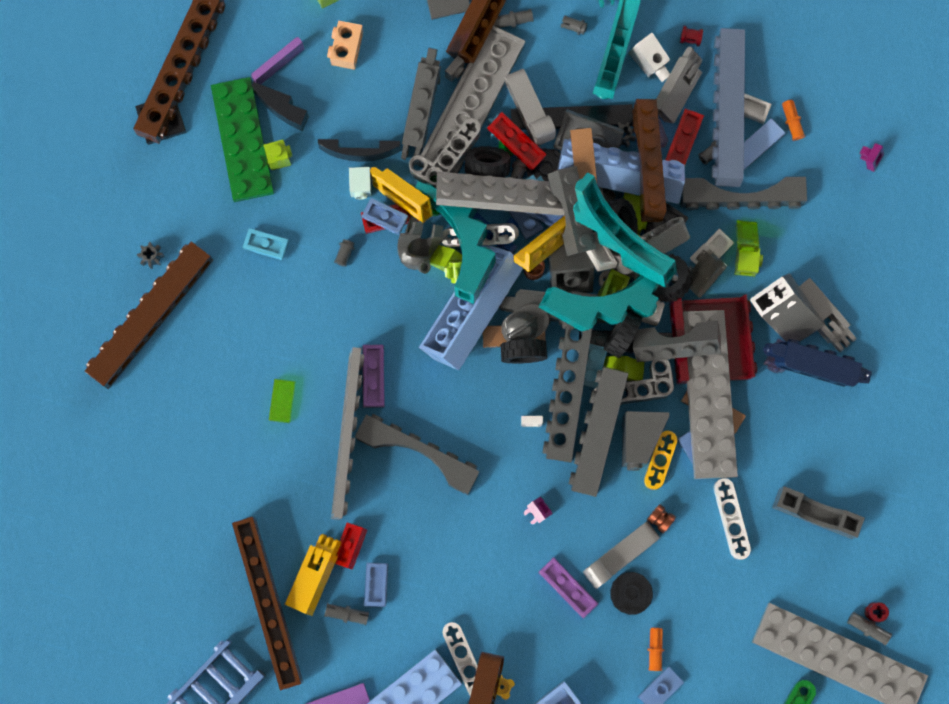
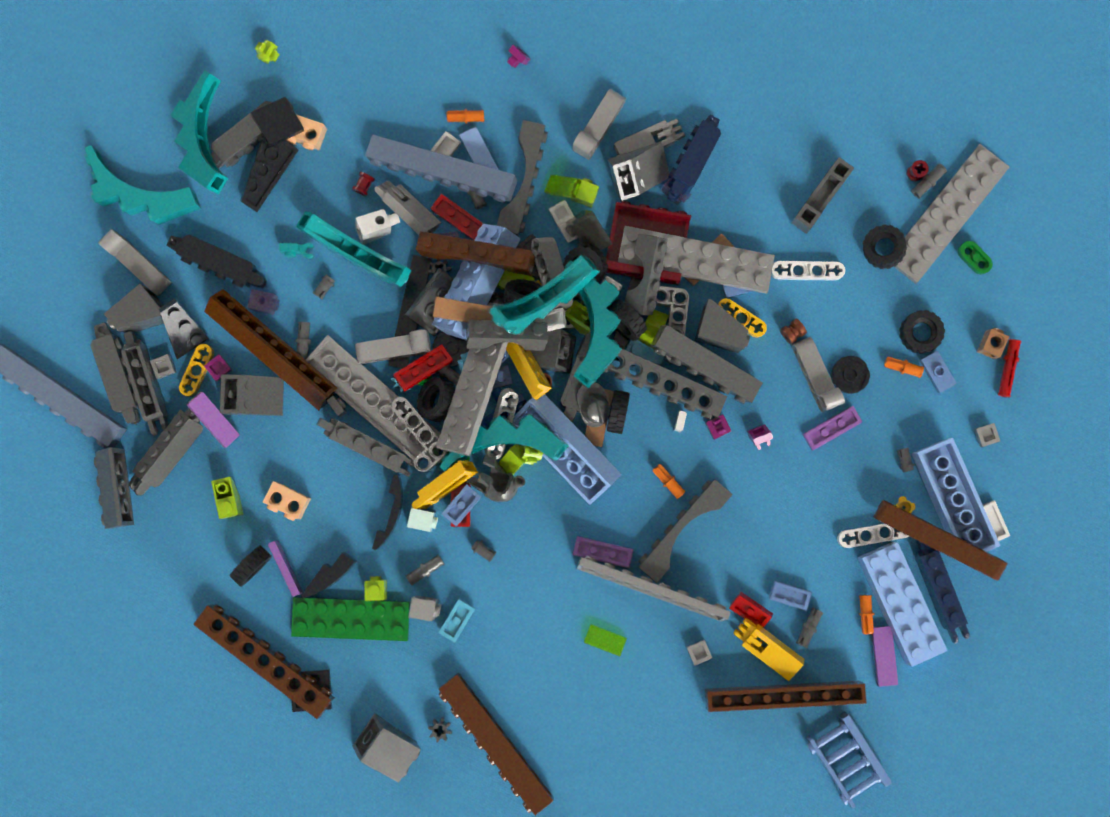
camera: 75 degrees left, 5 degrees up
(118, 206) = (386, 748): none -> slope
(270, 206) = (424, 608): none -> light grey brick
(271, 25) = (250, 566): none -> black tyre
(292, 502) = (699, 652): none -> light grey plate
(309, 199) = (424, 570): none -> dark grey pin
(376, 673) = (866, 614): none -> orange axle
(465, 425) = (668, 481): none -> orange axle
(536, 464) = (718, 427): none -> magenta tile
(554, 675) = (905, 460): none -> dark grey pin
(716, 663) = (934, 323): none -> black tyre
(785, 579) = (877, 234): none -> black tyre
(825, 258) = (589, 139): none -> light grey beam

